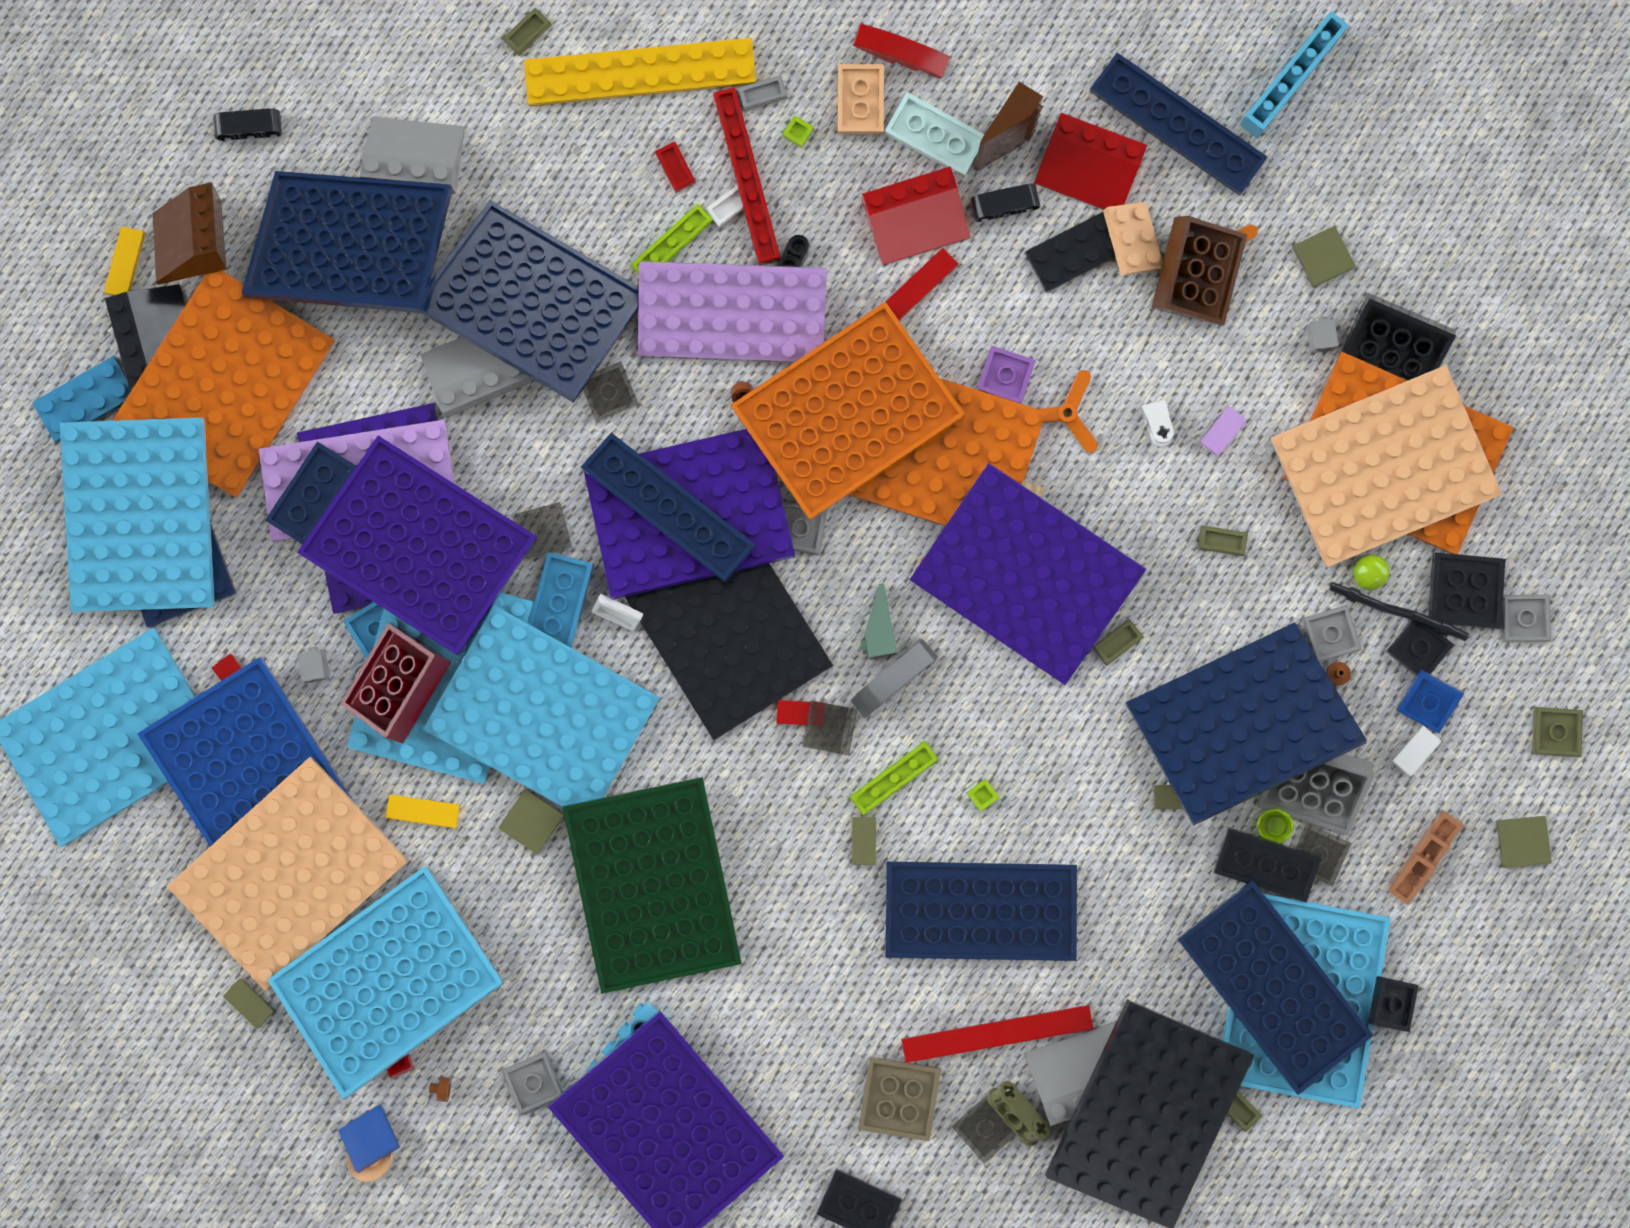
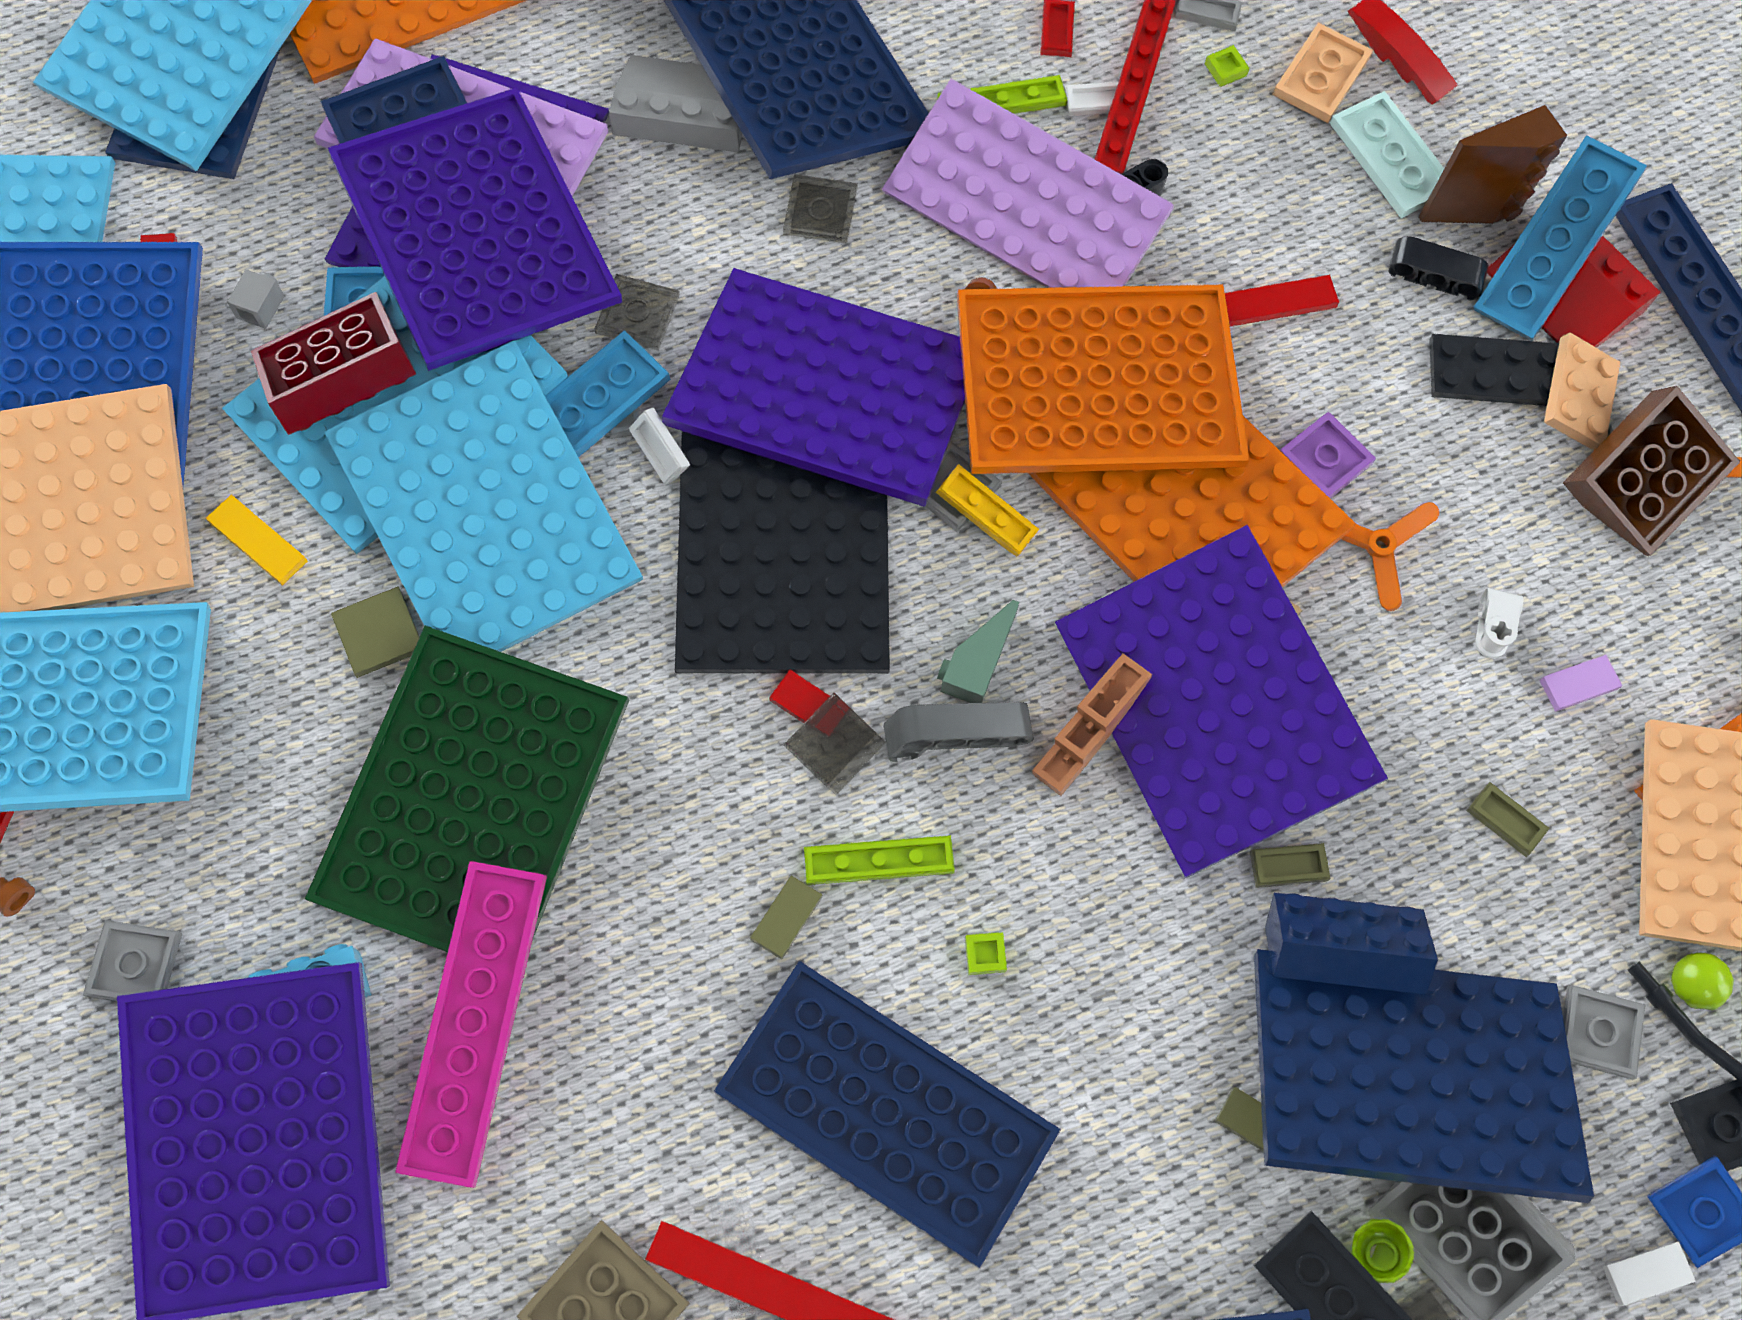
camera: 25 degrees right, 15 degrees down
(668, 507) = (805, 359): dark blue plate -> none
(736, 1001) = (471, 1025): none -> dark pink plate
(830, 533) = (987, 510): none -> yellow tile
(916, 215) = (1318, 221): red slope -> none
(966, 630) = (1092, 724): none -> nougat slope
(1069, 146) = (1559, 237): none -> dark azure plate
(1173, 672) = (1350, 943): none -> dark blue brick
(1333, 673) = (1589, 1091): dark orange tile -> none

